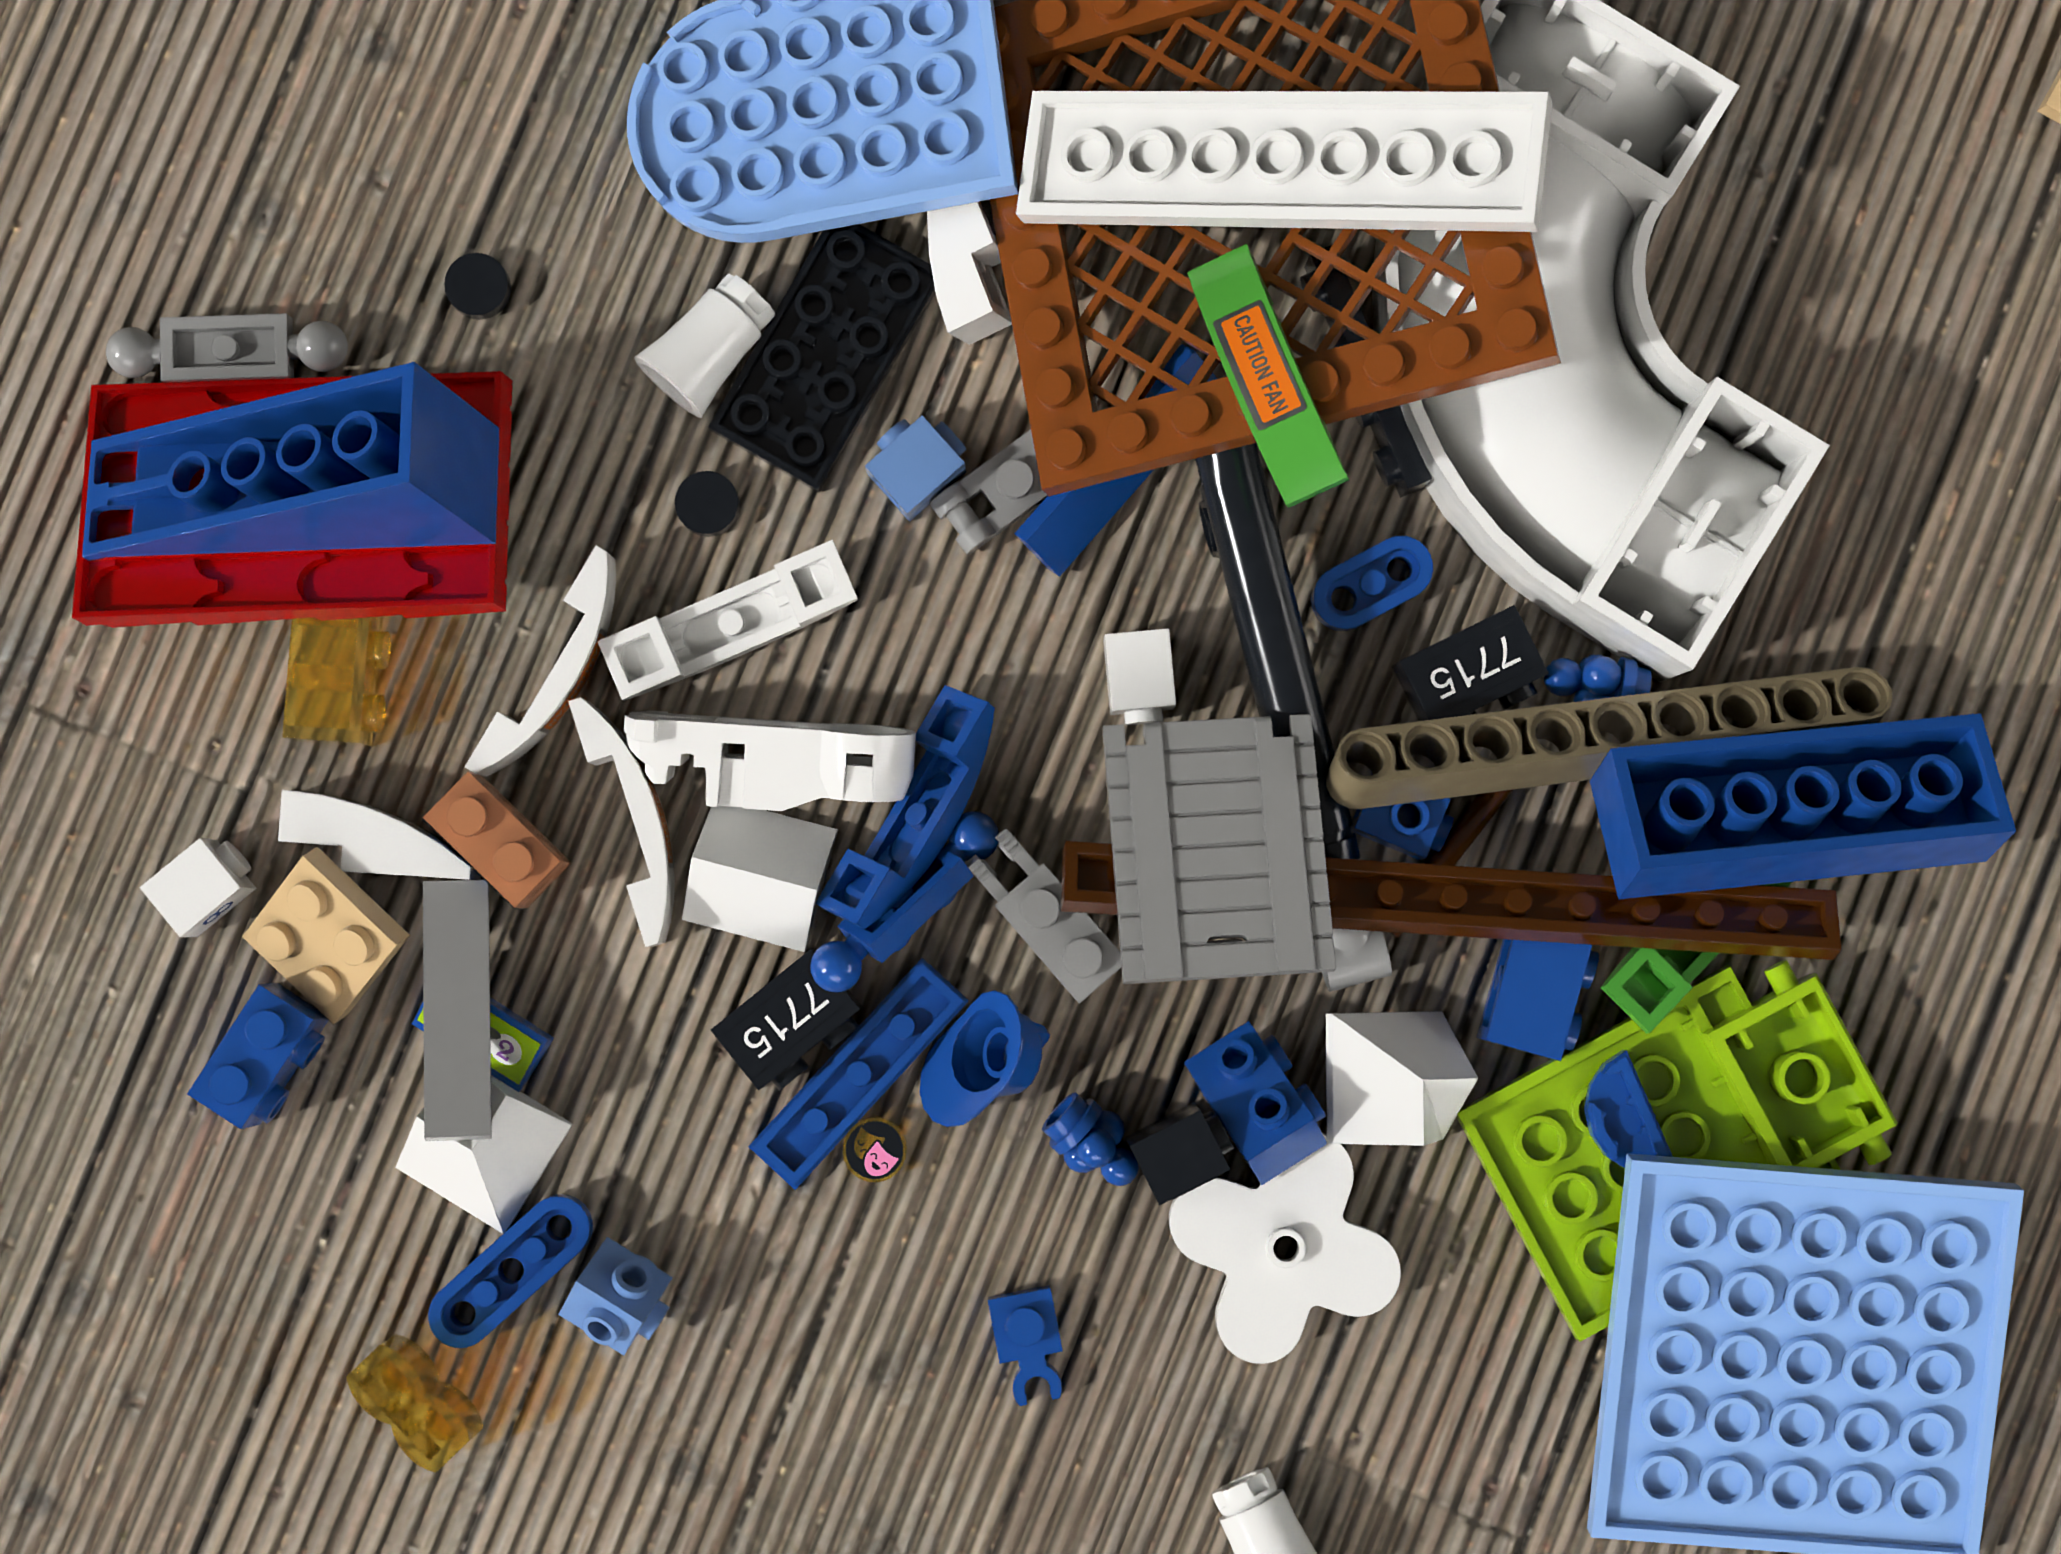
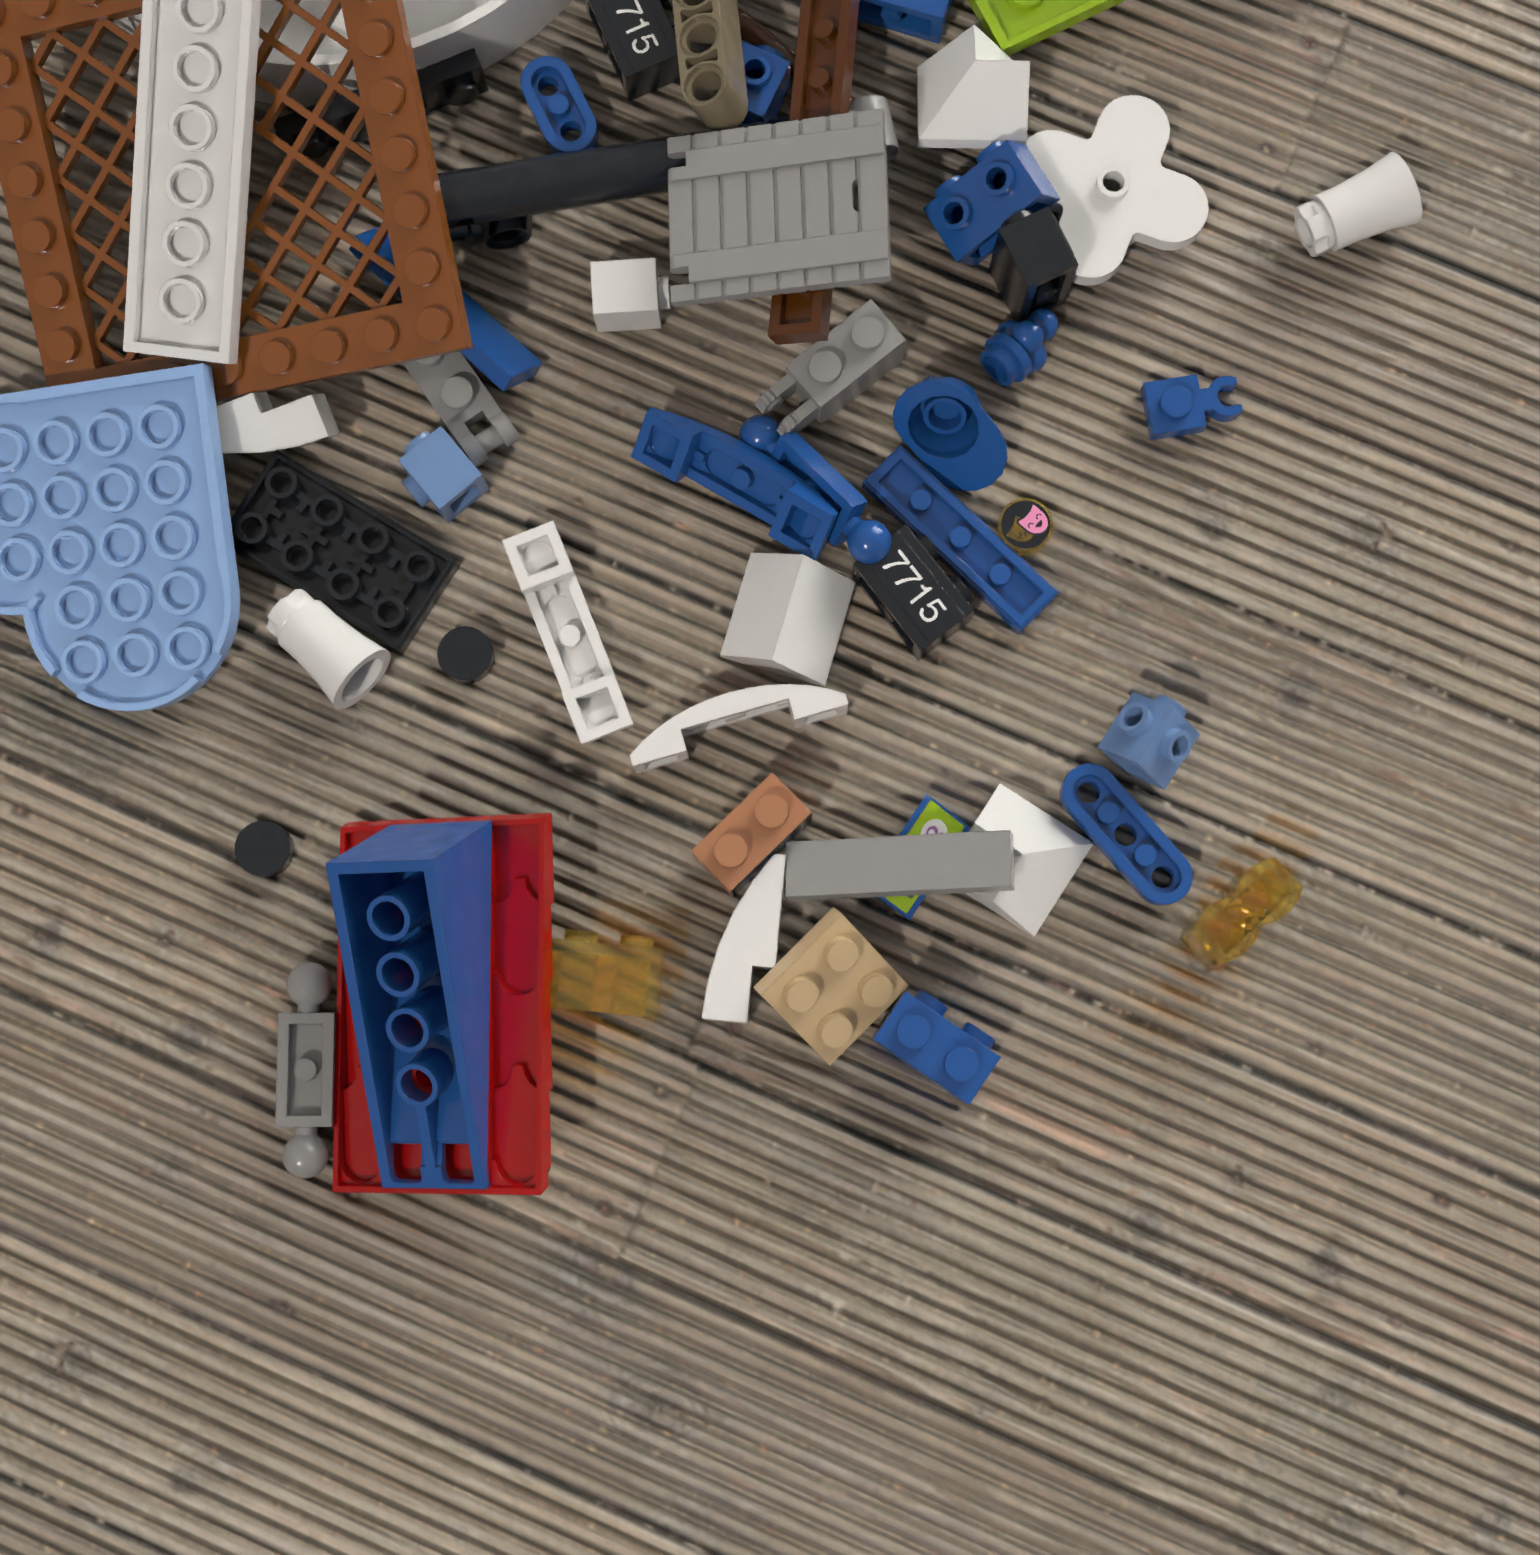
camera: 80 degrees left, 5 degrees down
(200, 886) = (783, 1099): white brick -> none
(508, 739) = (546, 752): white slope -> none
(781, 761) = (692, 590): white piece -> none
(1266, 376) = (376, 141): bright green slope -> none

